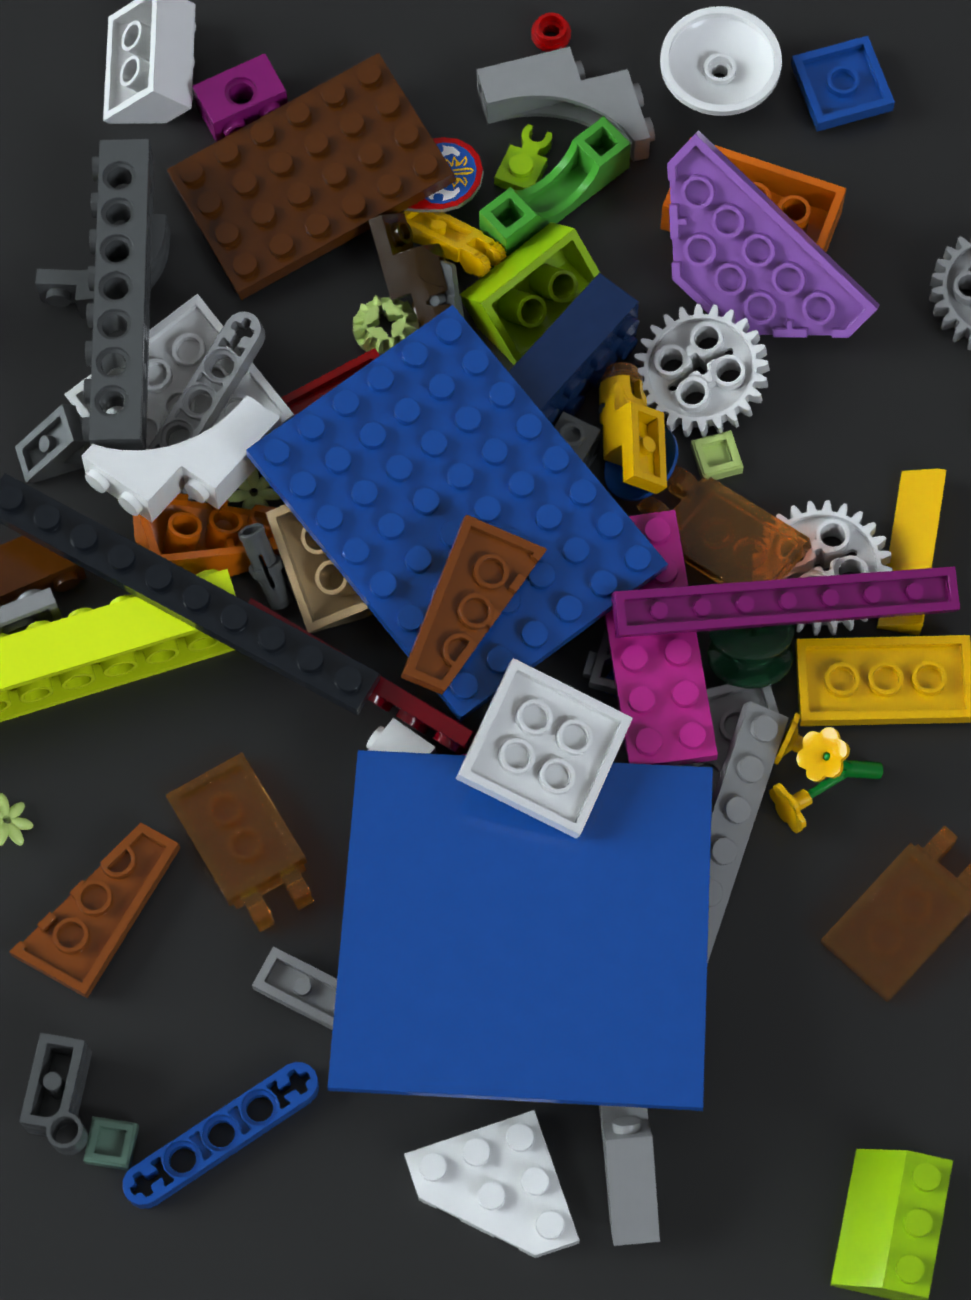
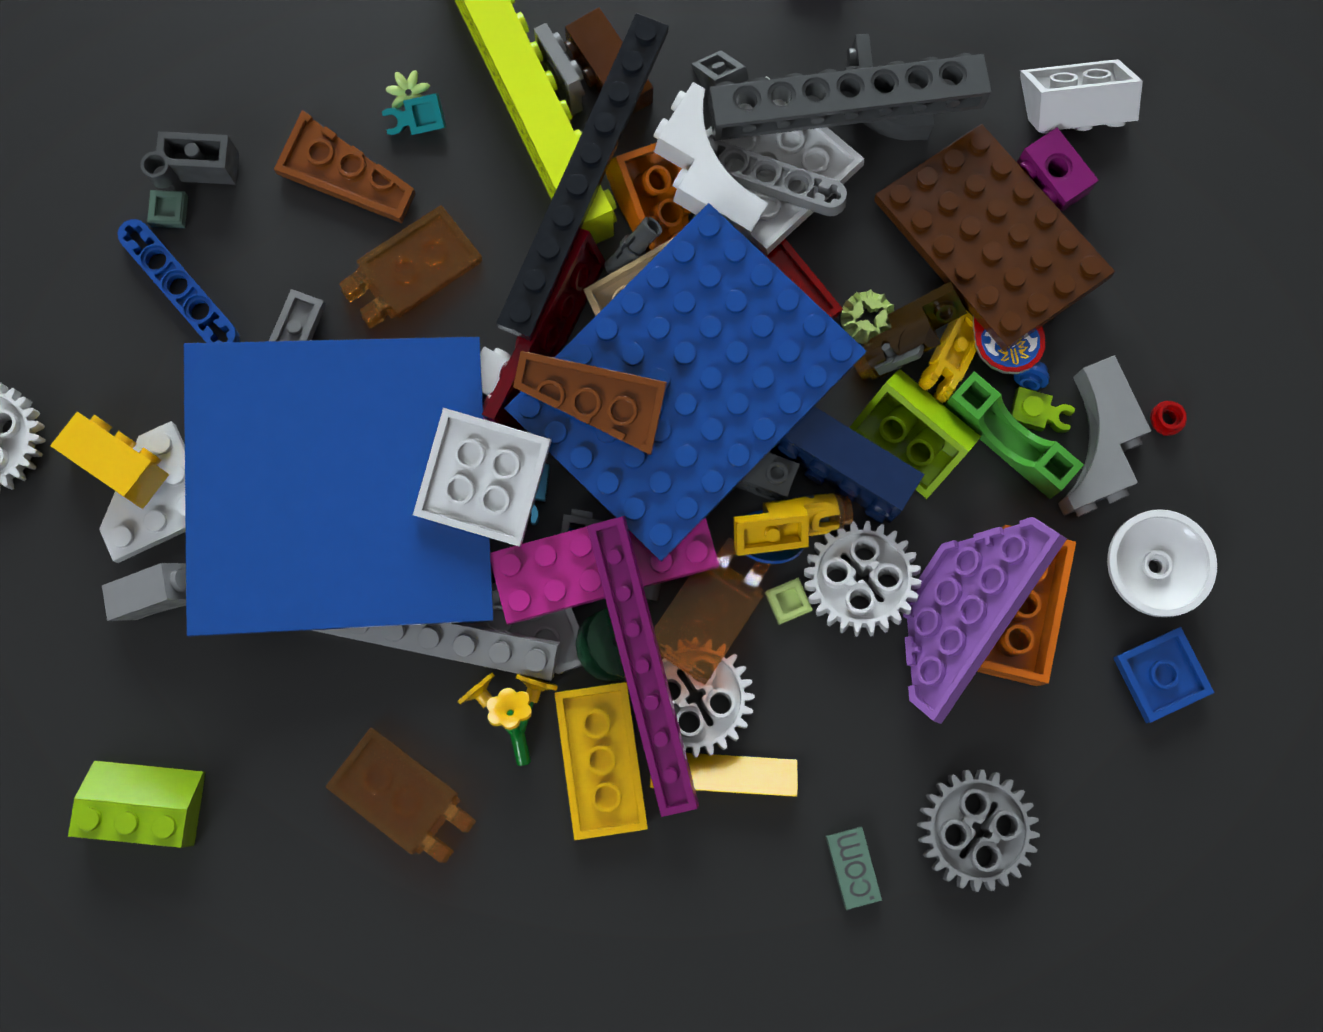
camera: 75 degrees right, 10 degrees up
(42, 806) = (420, 114): none -> teal plate
(449, 1223) = (111, 458): none -> yellow brick
(489, 158) = (1035, 378): none -> blue plate

